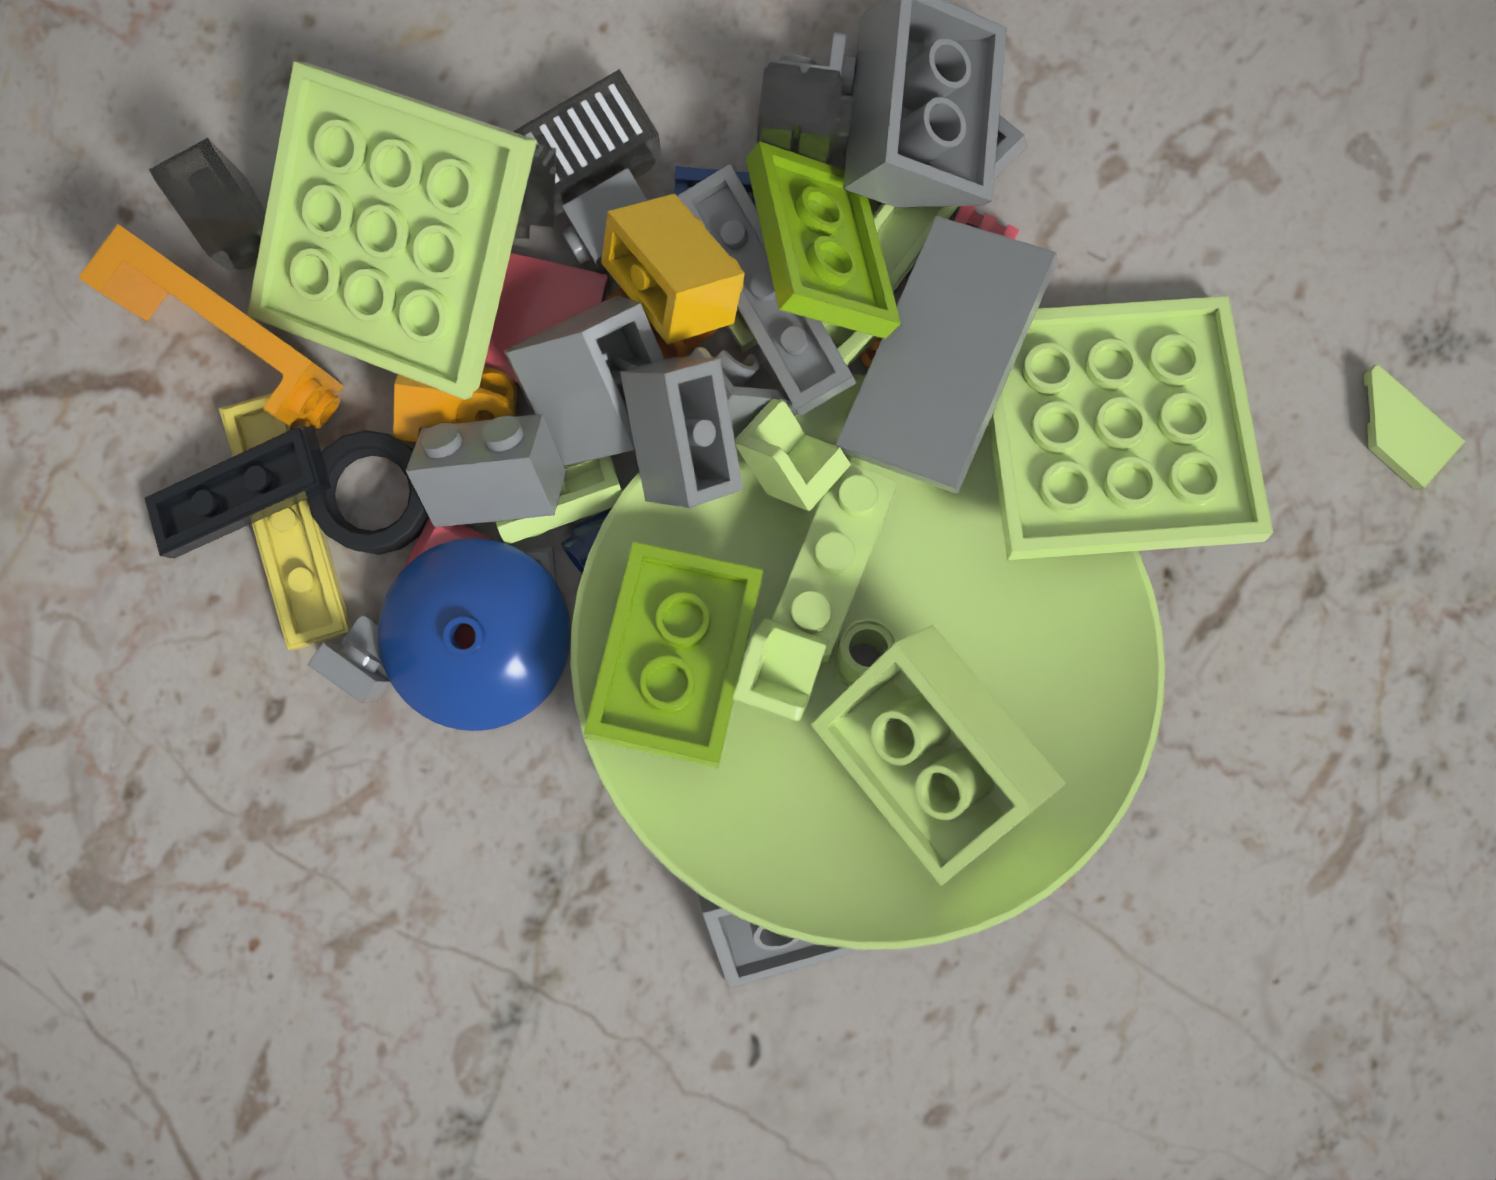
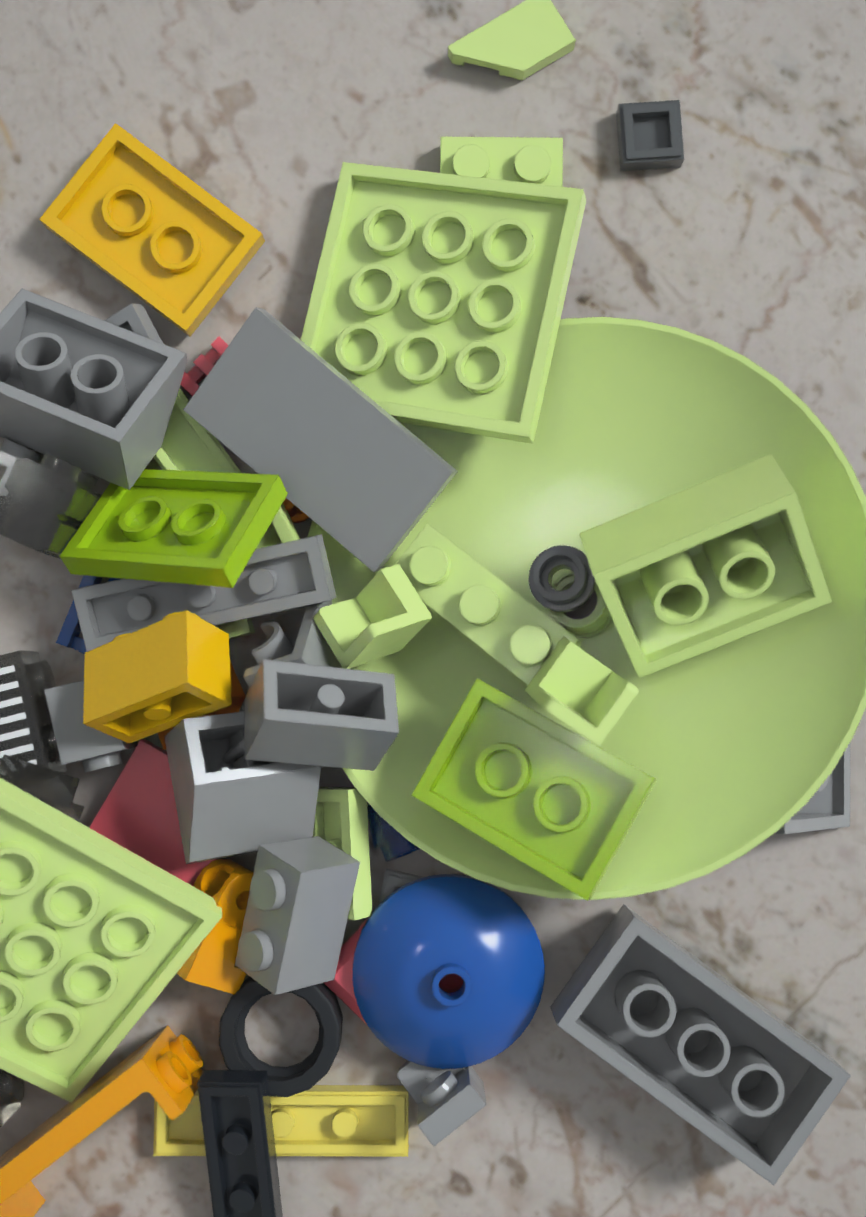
camera: 70 degrees left, 0 degrees up
(476, 894) = (698, 1044): none -> light grey brick
(882, 605) = (547, 565): none -> dark grey plate
(1103, 134) = (152, 229): none -> yellow plate
(1282, 453) = (504, 158): none -> yellowish green plate
(1353, 590) = (650, 135): none -> dark grey tile

